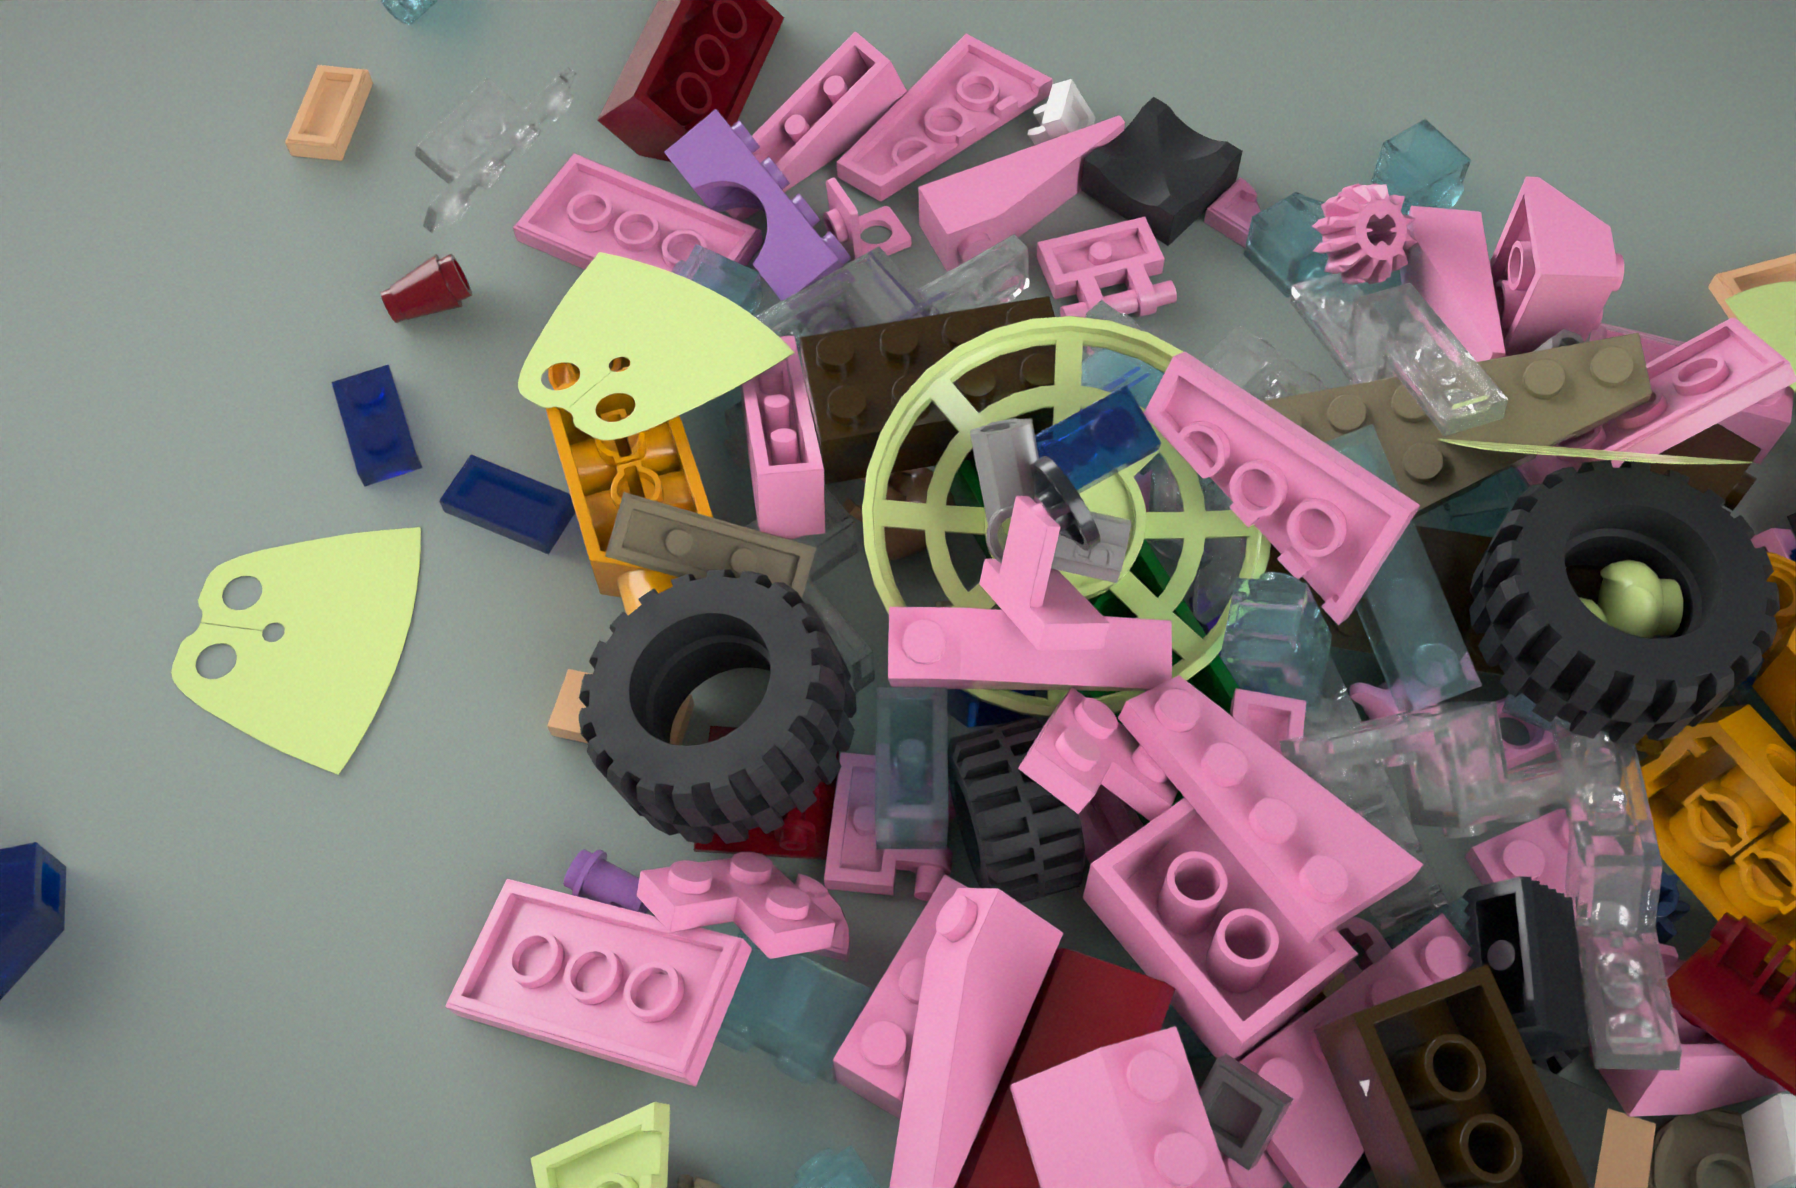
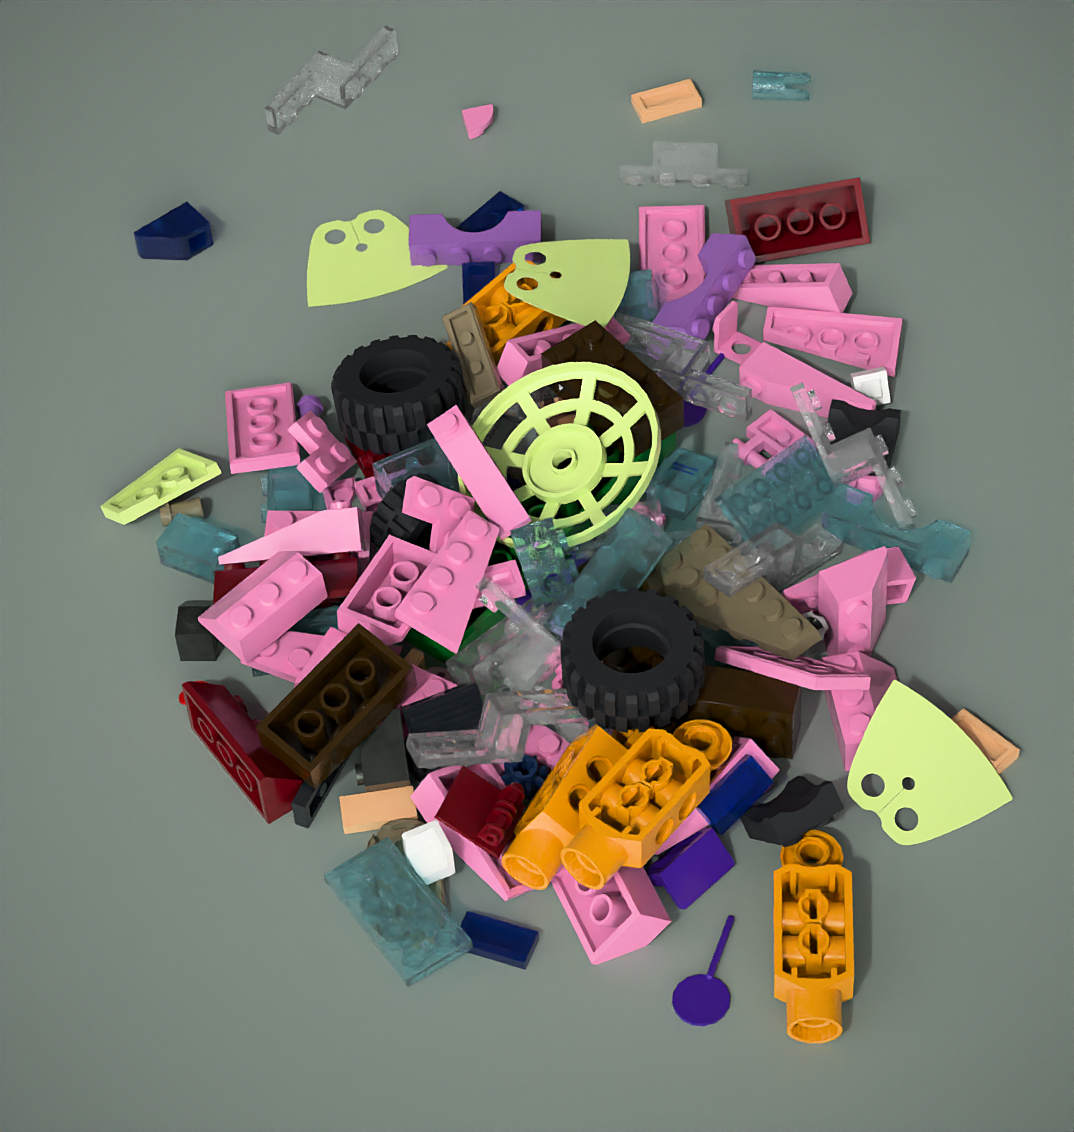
camera: 65 degrees right, 10 degrees down
(151, 349) = (477, 119): none -> bright pink tile
(369, 512) = (438, 243): none -> medium lavender arch
(428, 289) = (579, 196): dark red cone -> none
(1003, 467) = (530, 430): light grey piece -> none
(1024, 584) = (496, 447): bright pink piece -> none
(1099, 440) = (584, 436): clear blue plate -> none
(1230, 175) = (854, 456): none -> clear bracket
(1242, 1110) = (315, 634): dark grey tile -> none
(1246, 296) = (782, 490): none -> clear light blue tile
(1301, 494) = (606, 505): bright pink wing -> none
(1364, 234) = (857, 513): bright pink gear -> none
(1589, 453) = (711, 621): yellowish green piece -> none
(1637, 600) = (622, 660): yellowish green animal -> none

